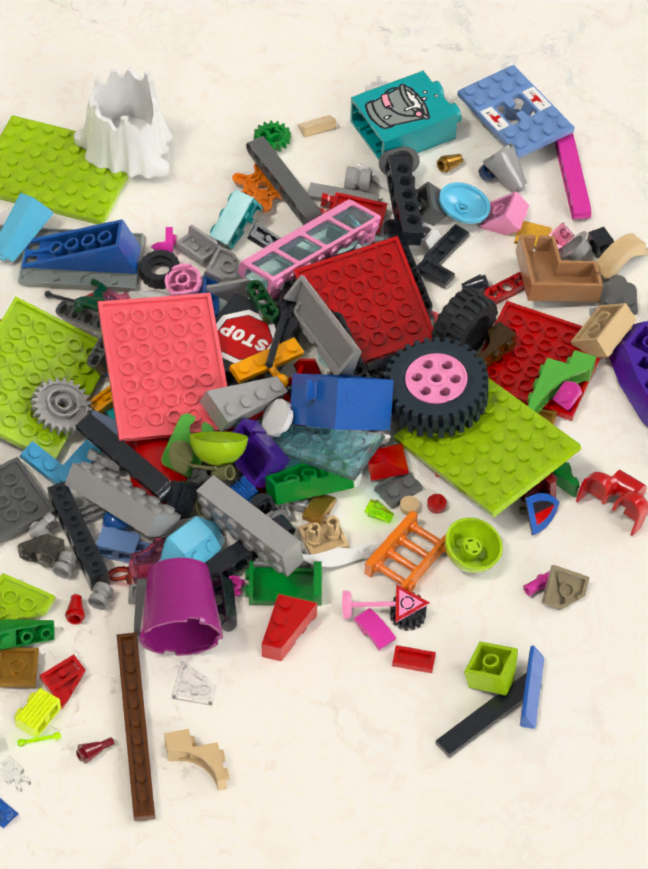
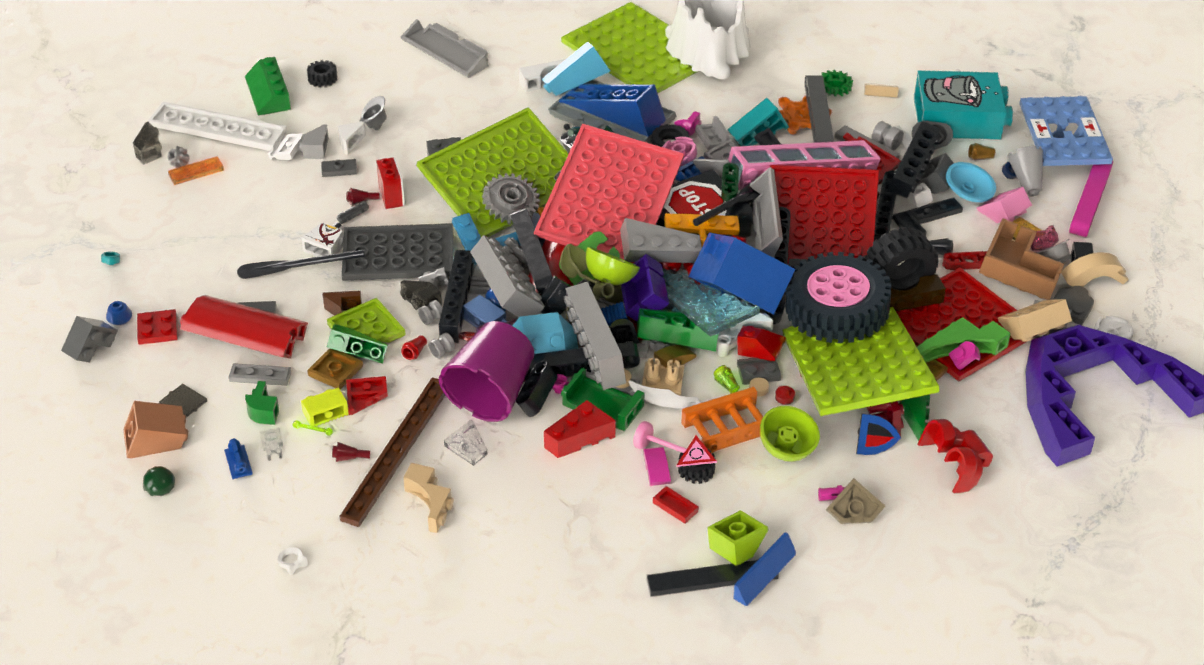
camera: 30 degrees right, 10 degrees down
(277, 417) = (679, 268): white tile -> none

